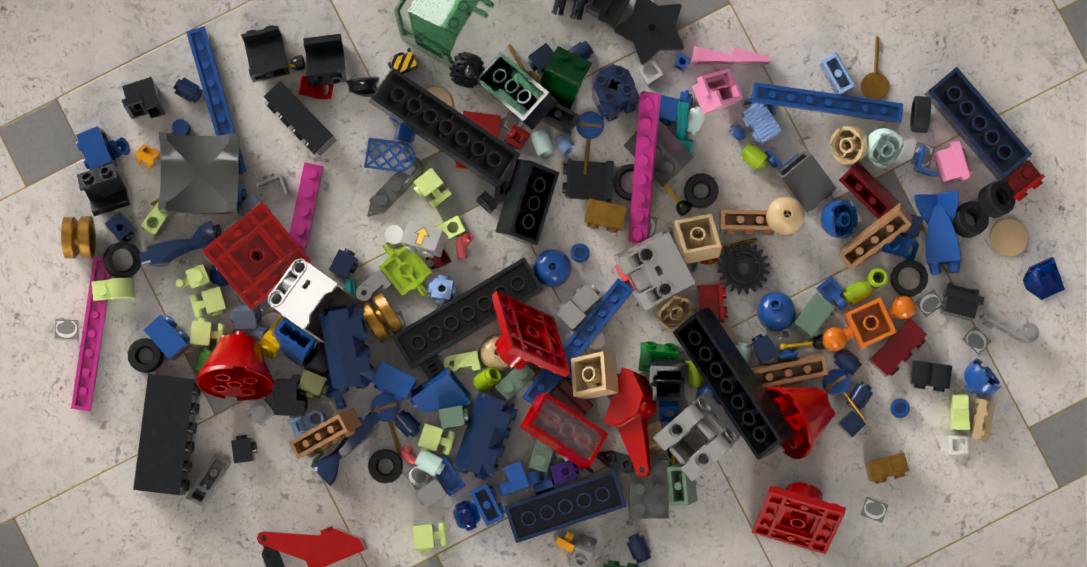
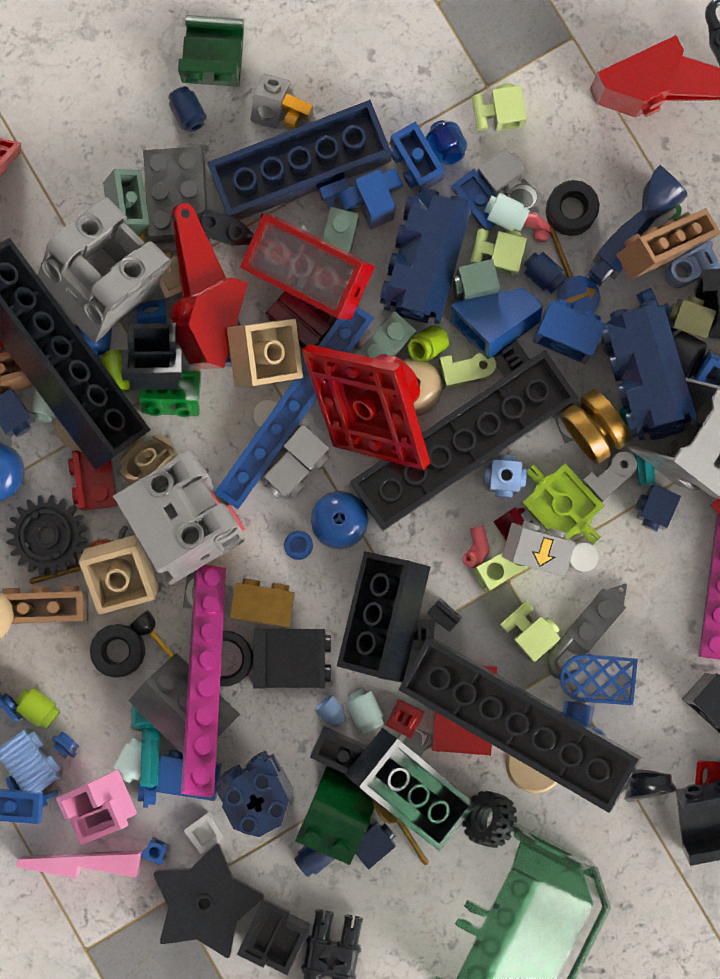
camera: 170 degrees right, 0 degrees up
(403, 62) = (588, 825): brick -> none
(564, 472) = (305, 211): dark purple brick -> none
(589, 127) = (294, 740): blue piece -> none

